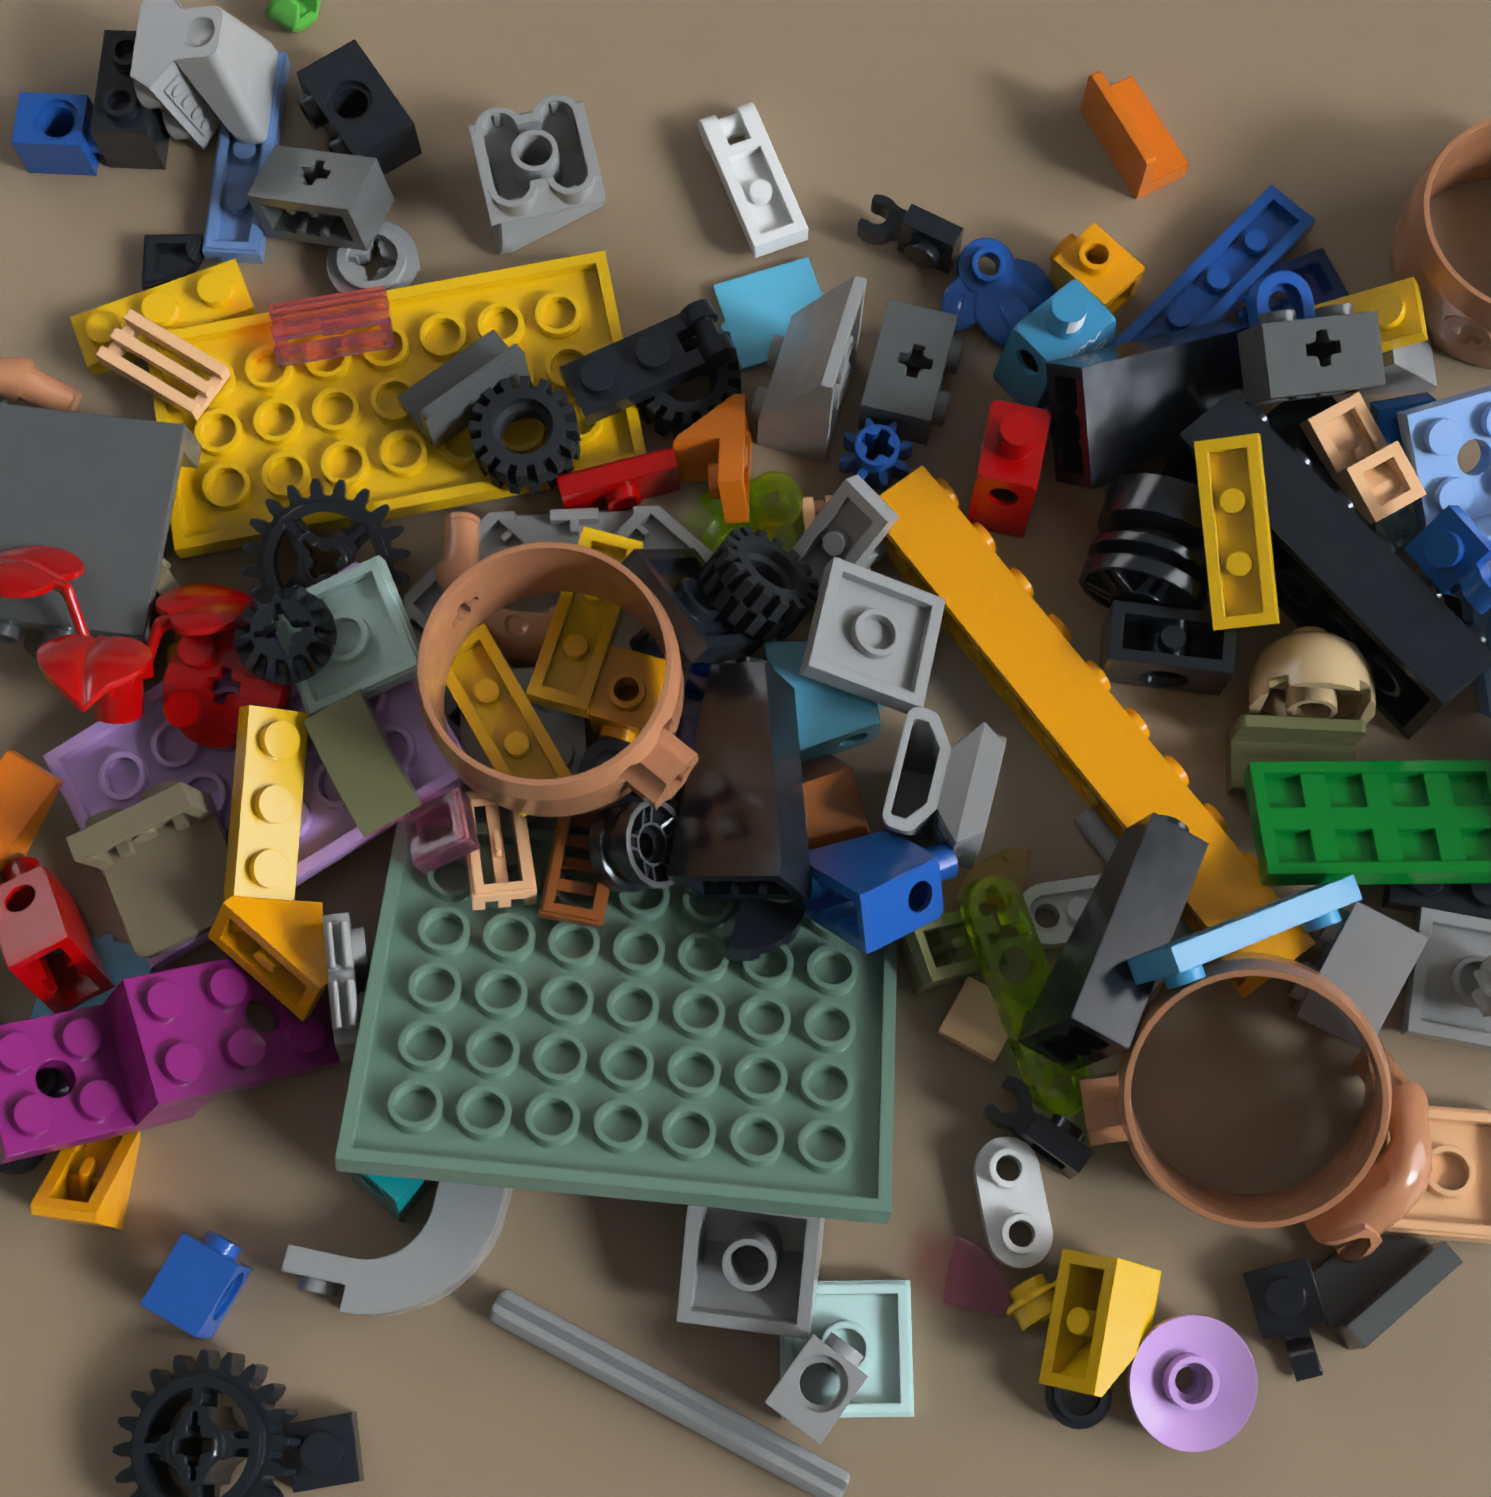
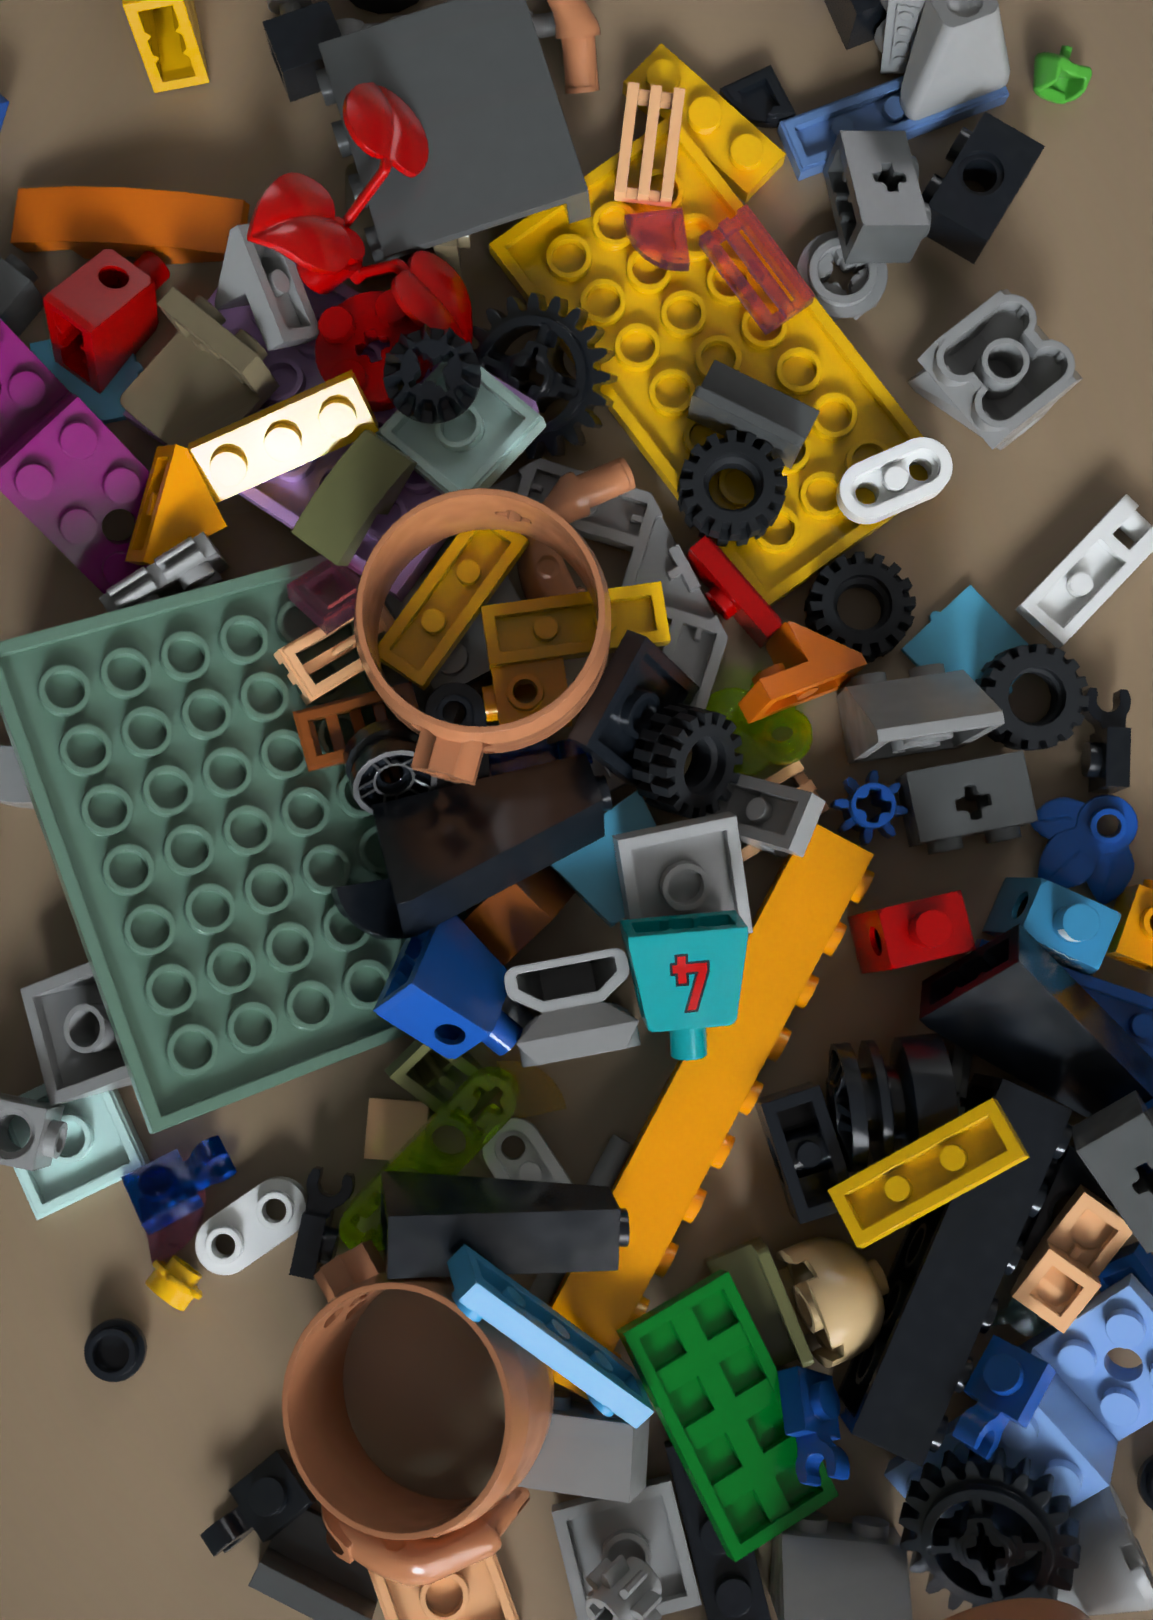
camera: 60 degrees right, 10 degrees up
(96, 751) = (270, 286): none -> light grey slope
(256, 395) = (660, 238): none -> clear pink tile
(590, 300) = (891, 481): none -> white plate
(647, 363) = (853, 562): black plate -> none
(848, 248) = (1063, 685): none -> black tyre
(943, 1261) = (171, 1187): none -> clear blue plate
(961, 663) = (687, 974): none -> teal torso
(1096, 1320) = (173, 1343): yellow slope -> none
(1220, 1390) = (149, 1464): lavender dish -> none
(1409, 747) = (811, 1416): none -> blue plate

